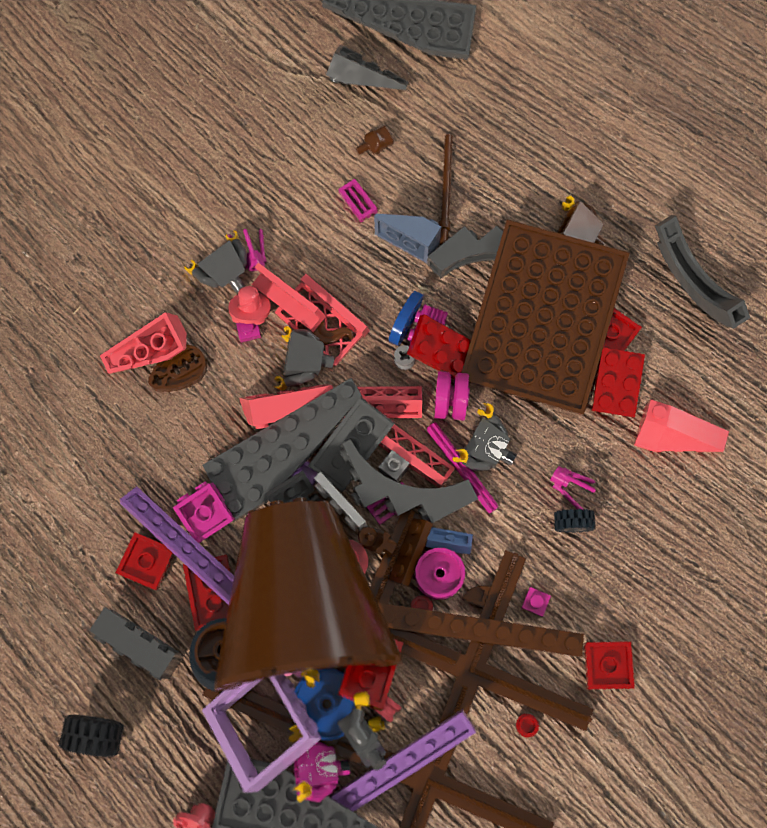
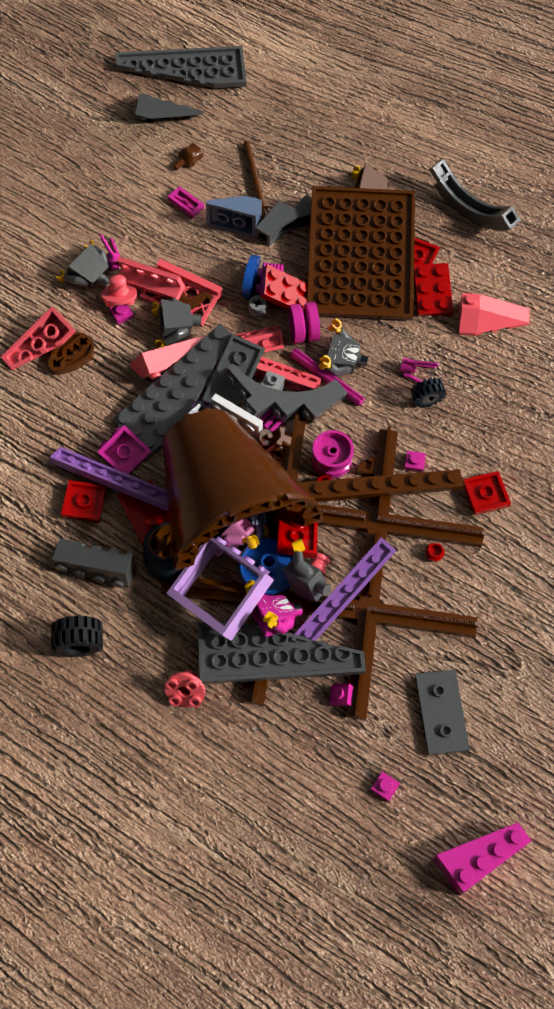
camera: 20 degrees left, 10 degrees down
(410, 551) = (304, 442): reddish brown plate -> none
(452, 540) = (344, 428): medium blue plate -> none

